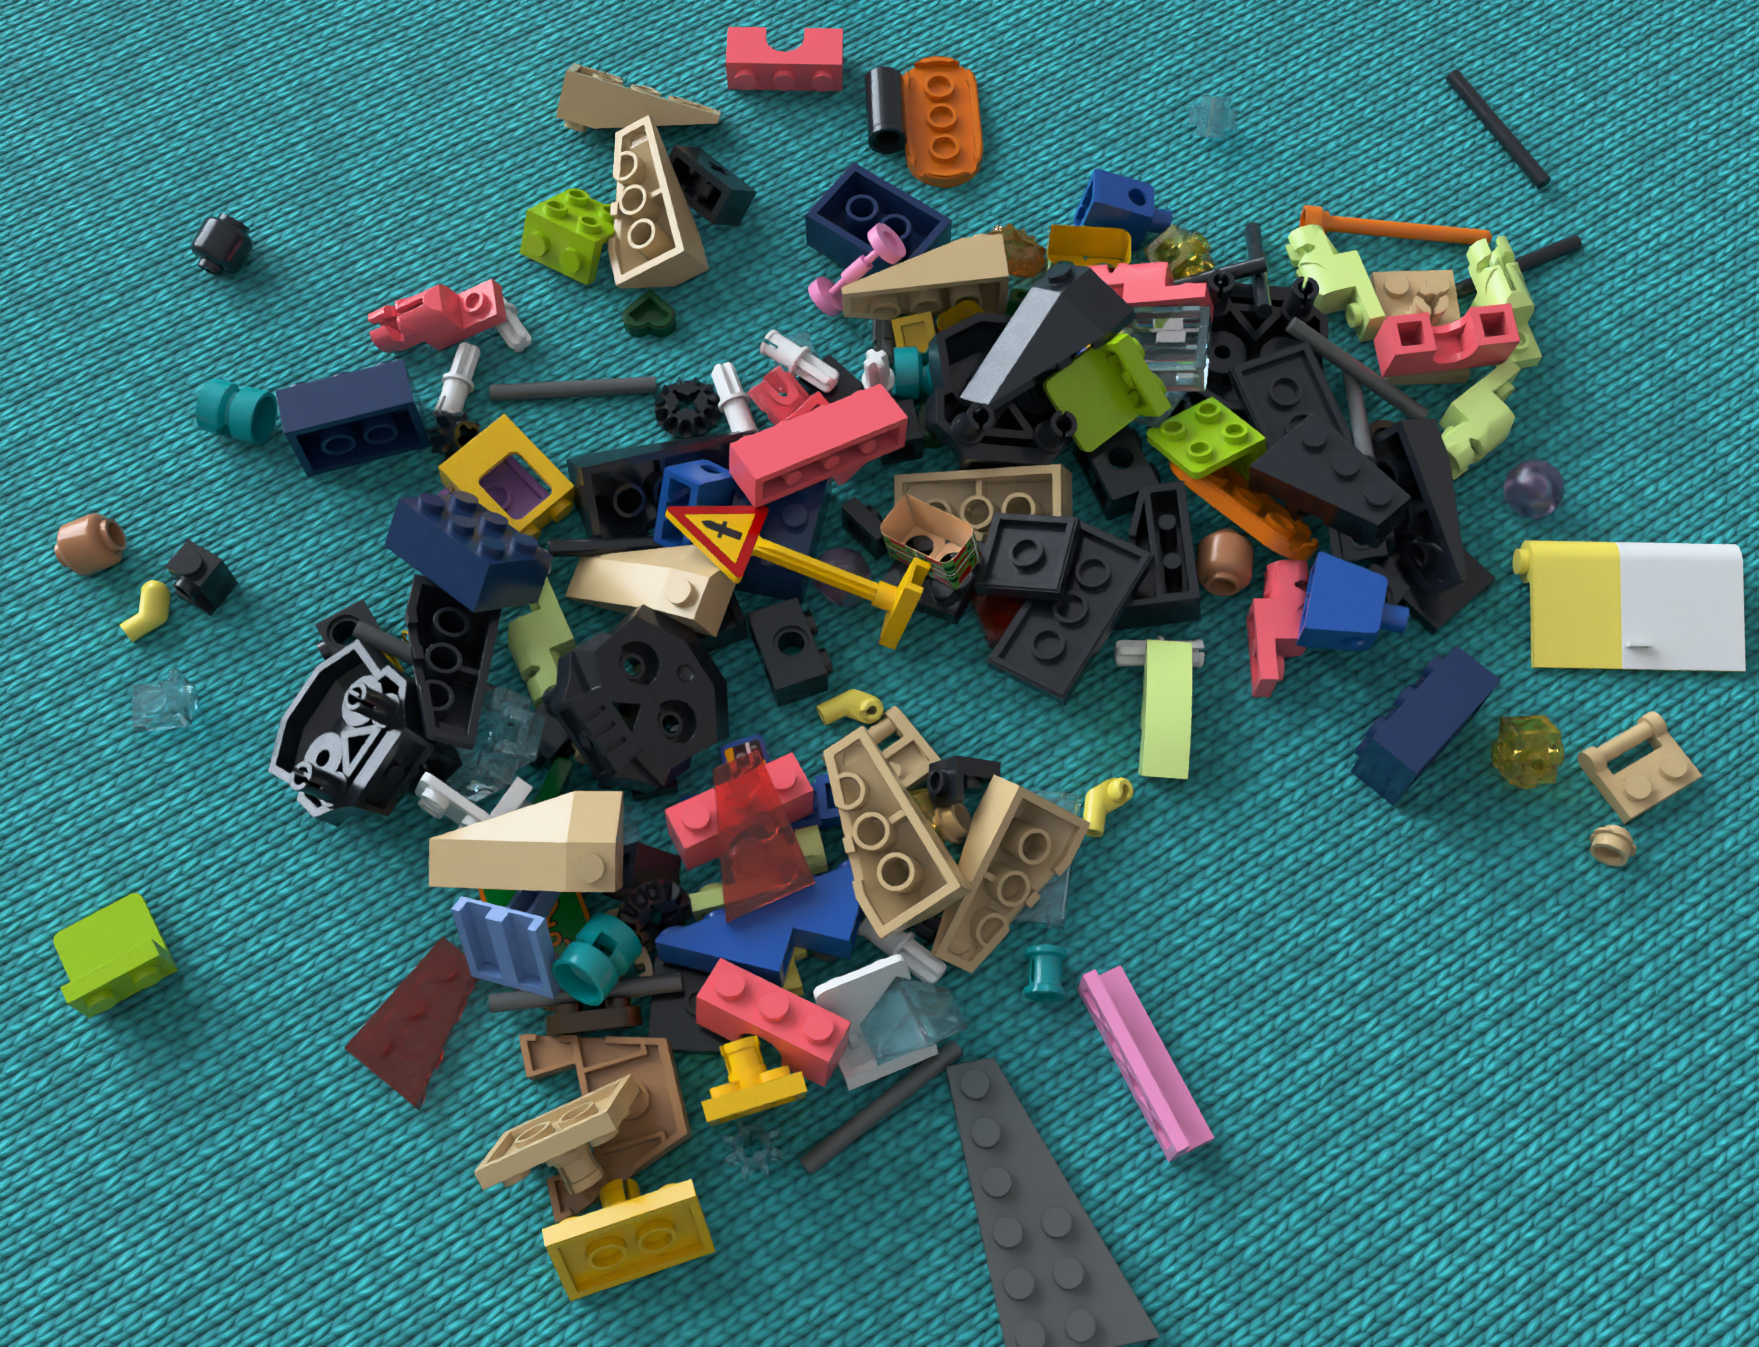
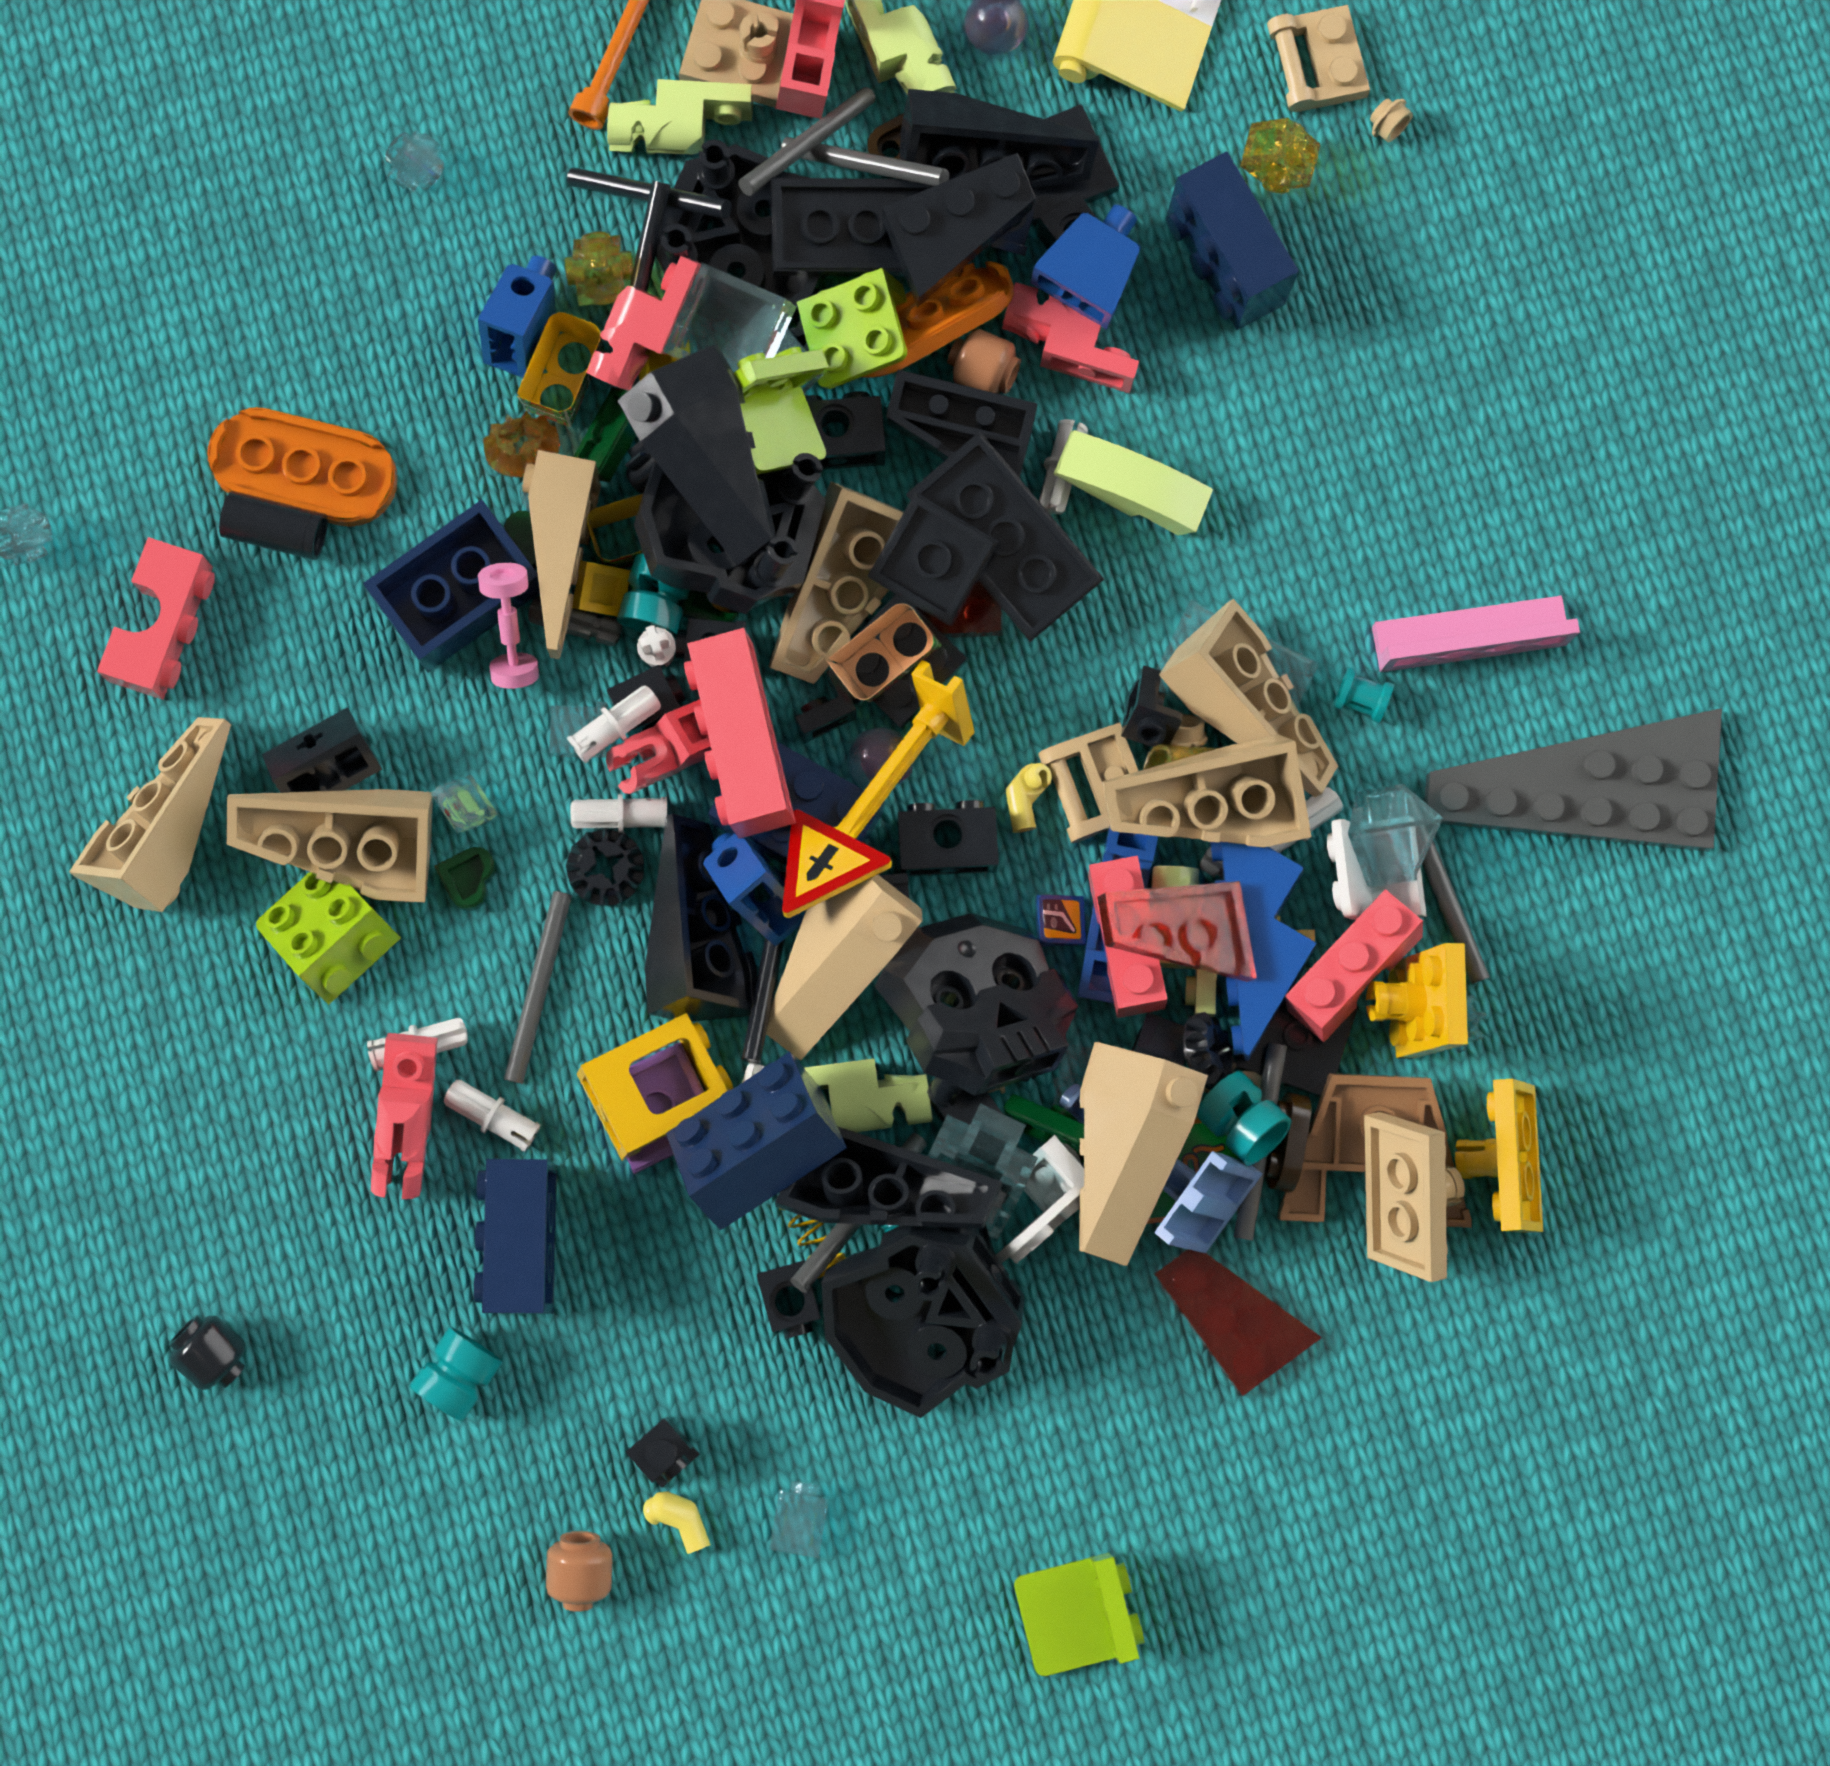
camera: 80 degrees left, 15 degrees up
(452, 433) = (572, 1132): black gear -> none
(706, 292) = (464, 803): none -> clear light blue tile
(1104, 799) = (1200, 578): light yellow arm -> none

